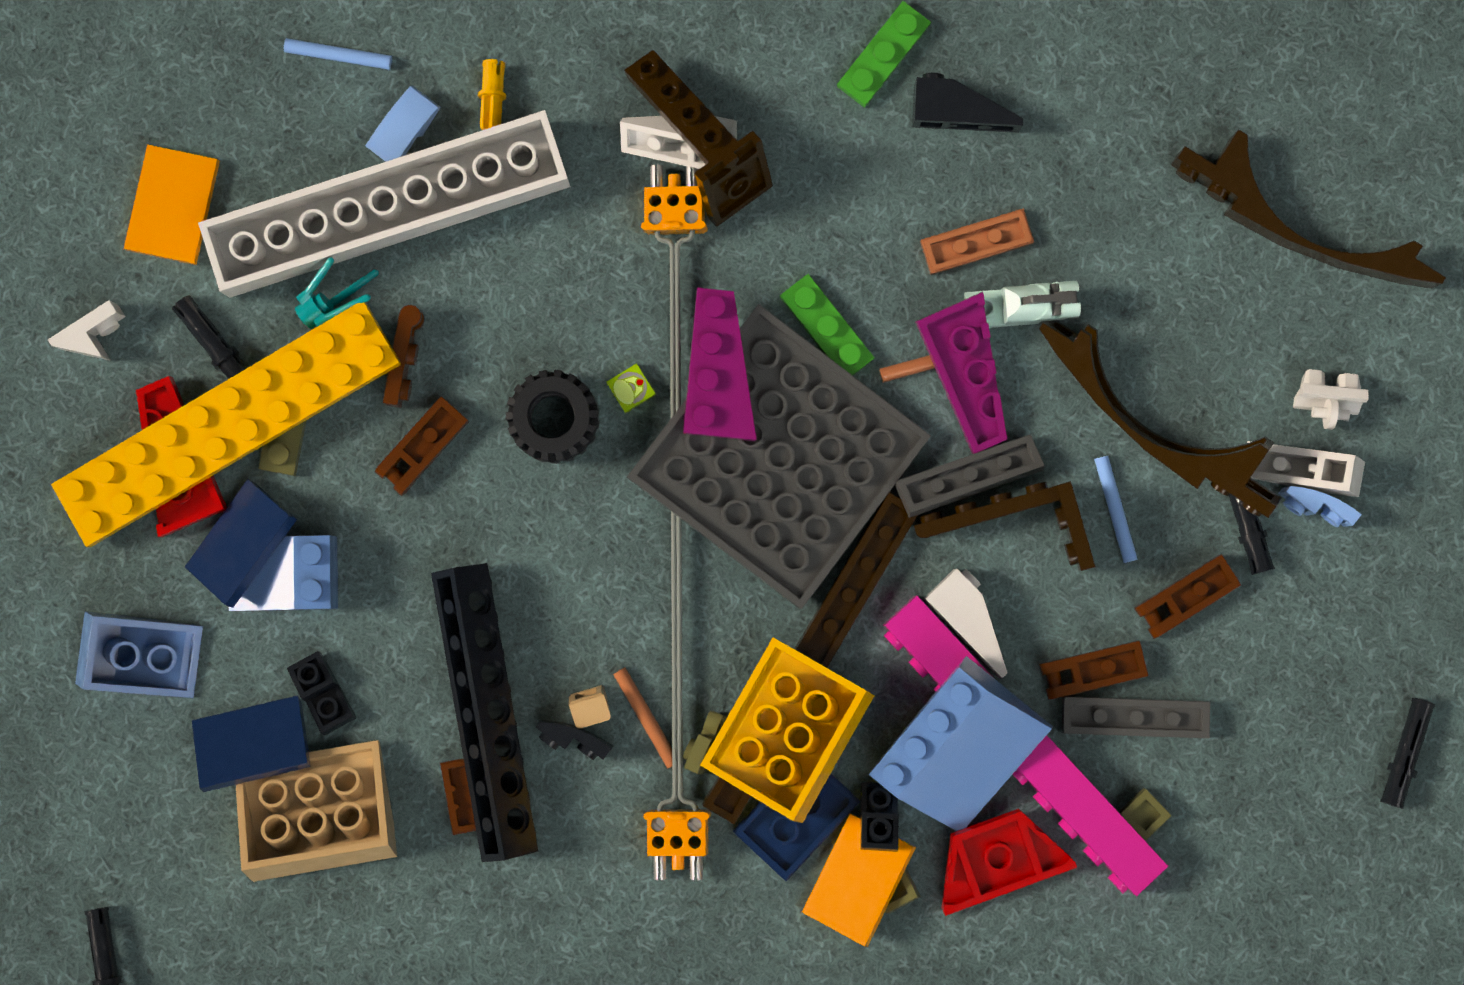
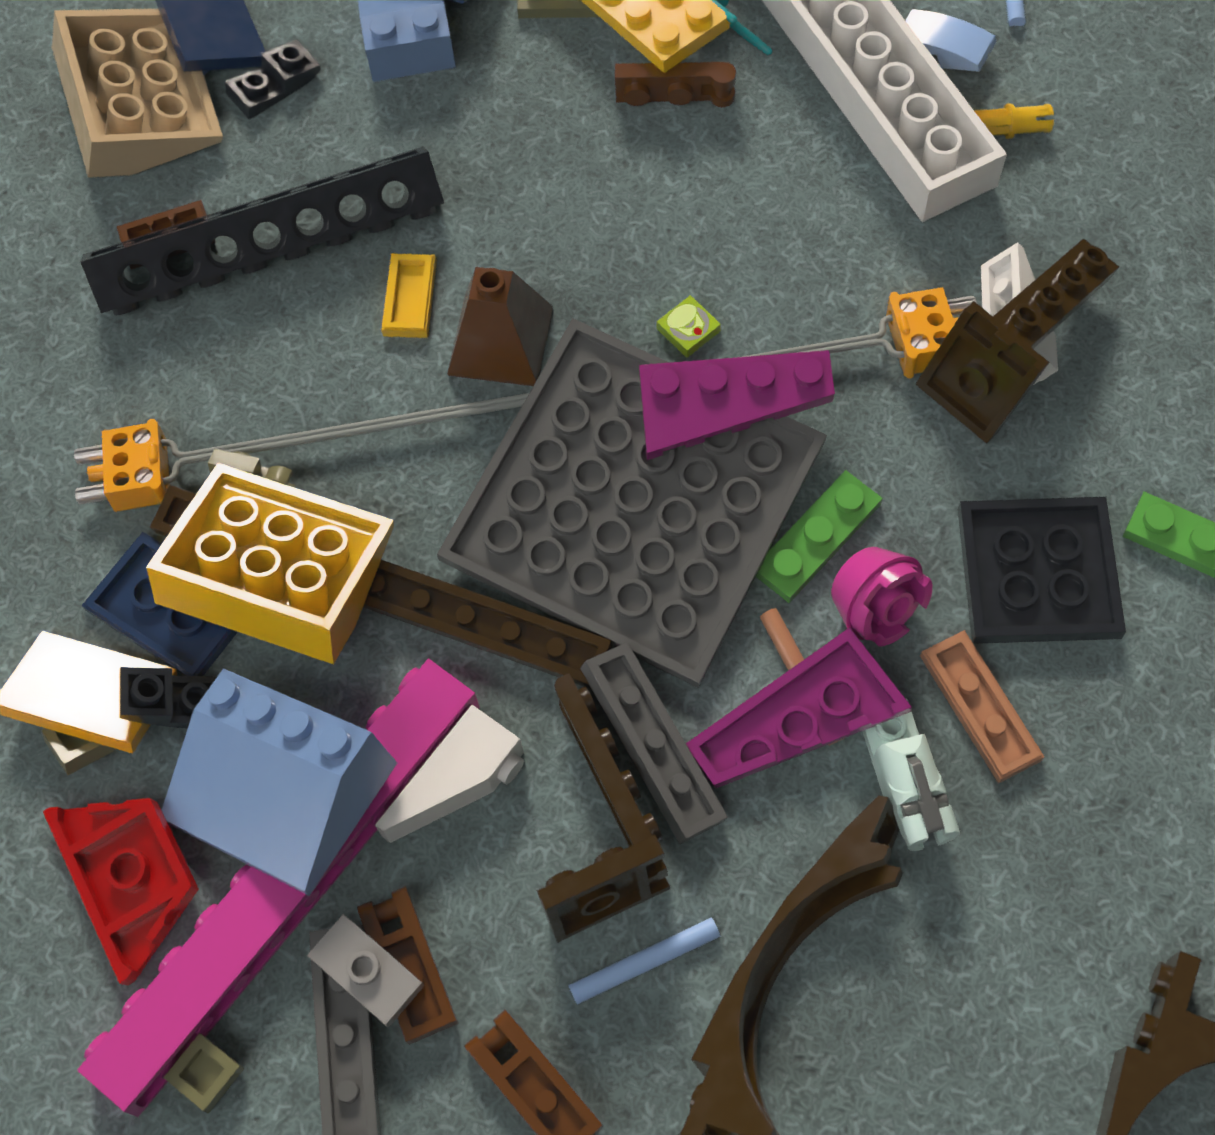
camera: 85 degrees right, 20 degrees down
(422, 445) = (575, 123): reddish brown plate -> none
(530, 394) = (638, 269): black tyre -> none
(559, 603) = (409, 295): none -> yellow tile
(562, 734) = (248, 321): black slope -> none
(589, 707) = (283, 340): tan slope -> none
(627, 550) = (500, 329): none -> reddish brown slope
(645, 715) = (286, 407): nougat bar -> none
(885, 174) = (1040, 570): none -> black plate
(890, 294) = (879, 593): none -> dark pink cone
(951, 105) = (1158, 639): black slope -> none
(1099, 696) = (366, 970): none -> light grey plate

